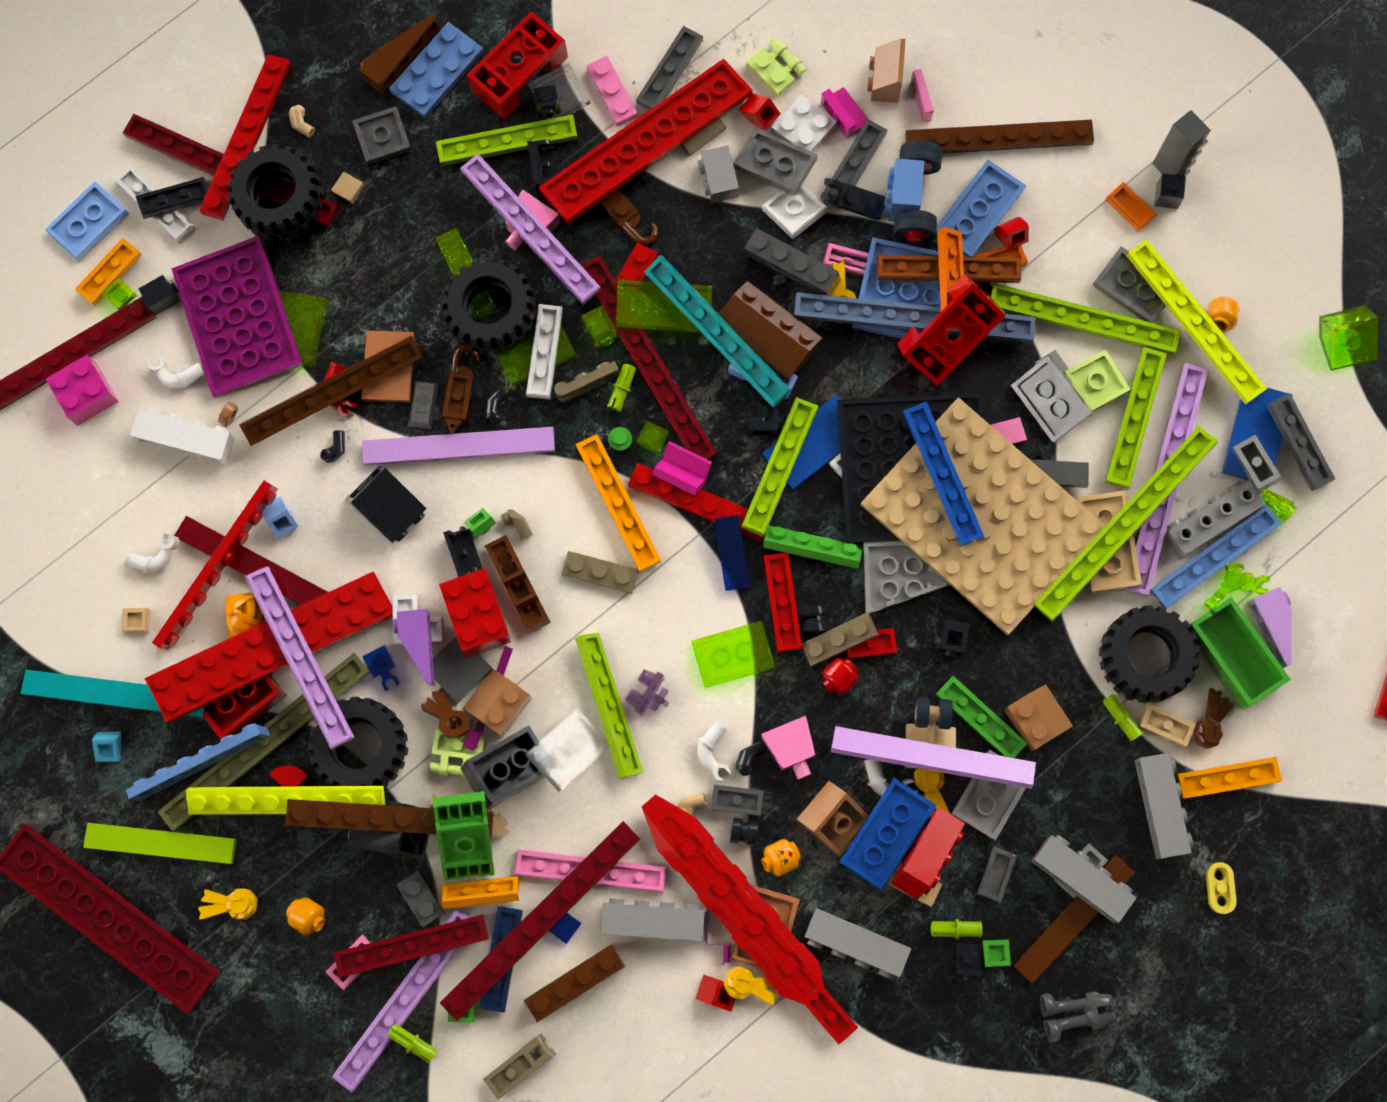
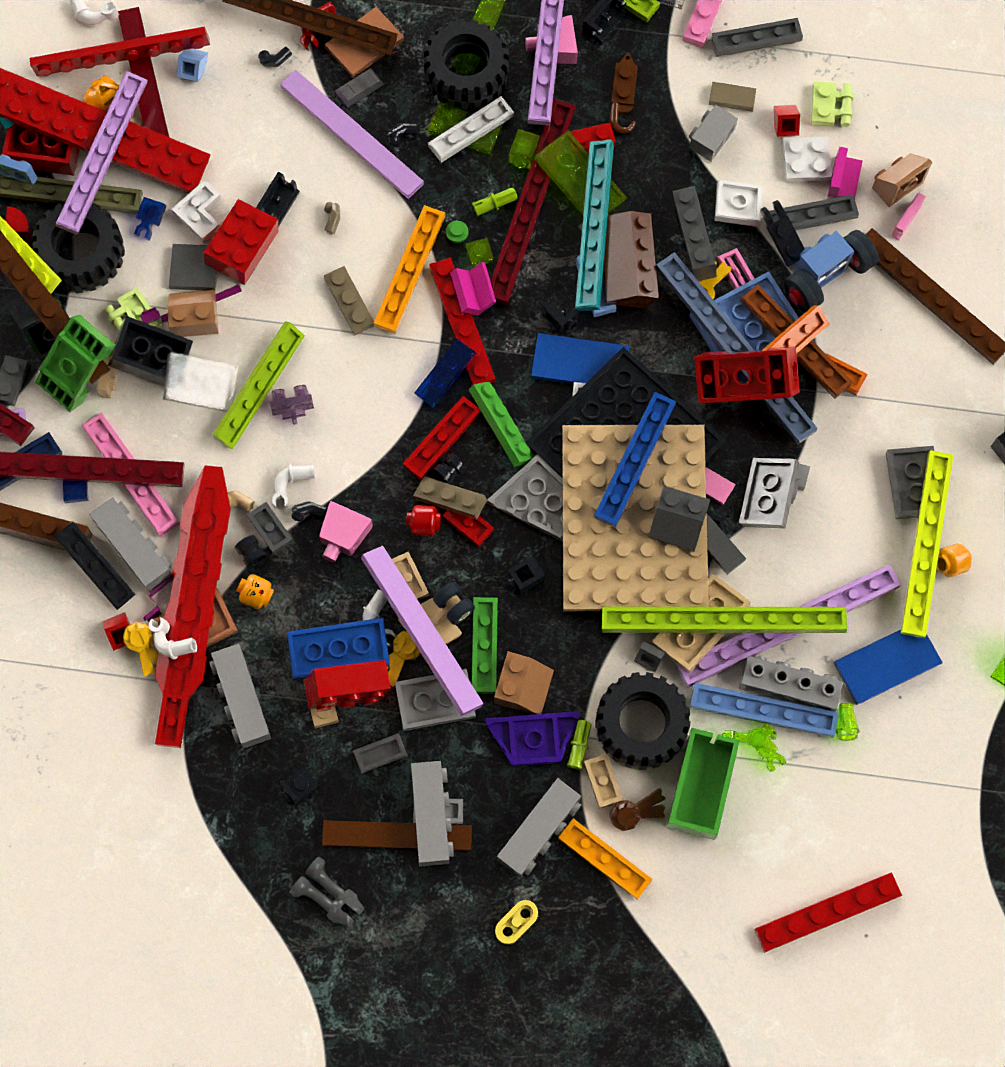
camera: 40 degrees right, 5 degrees down
(135, 620) = (38, 39): tan tile -> none
(387, 504) = (264, 121): black slope -> none
(415, 634) = (187, 218): medium lavender slope -> none
(452, 722) = (150, 292): reddish brown piece -> none
(458, 390) = (389, 100): reddish brown plate -> none
(480, 522) = (309, 192): bright green plate -> none
(480, 892) = (49, 413): light orange plate -> none
(517, 584) = (289, 254): reddish brown slope -> none
(586, 381) = (476, 174): dark tan plate -> none
(645, 141) = (688, 64): red plate -> none
(648, 966) = (94, 565): none -> black tile
(733, 654) = (373, 437): clear neon green tile -> none
(773, 966) = (170, 648): none -> white piece
(775, 161) = (759, 160): flat silver plate -> none
(779, 467) = (537, 351): lime tile -> none
(833, 818) = (316, 602): medium nougat slope -> none
(873, 724) = (411, 575): none -> tan plate
(956, 929) = (314, 758): lime axle -> none
(982, 206) = (866, 327): medium blue plate -> none
(996, 953) = (321, 800): bright green plate -> none
(1013, 233) = (867, 363): red brick -> none
(1021, 484) = (679, 518): none -> dark grey slope
(1086, 319) = (853, 468): lime plate -> none
(1087, 747) = (533, 737): none -> dark purple wing
(1098, 380) = (814, 515): yellowish green plate -> none
(1100, 603) = (649, 656): none -> dark grey plate
(1130, 206) = (972, 429): orange tile -> none
(1135, 418) = (814, 565): lime plate -> none
(1256, 464) = (859, 675): light grey brick -> none
(1273, 617) = (757, 790): lavender slope -> none
(1300, 442) = (910, 696): dark grey plate -> none

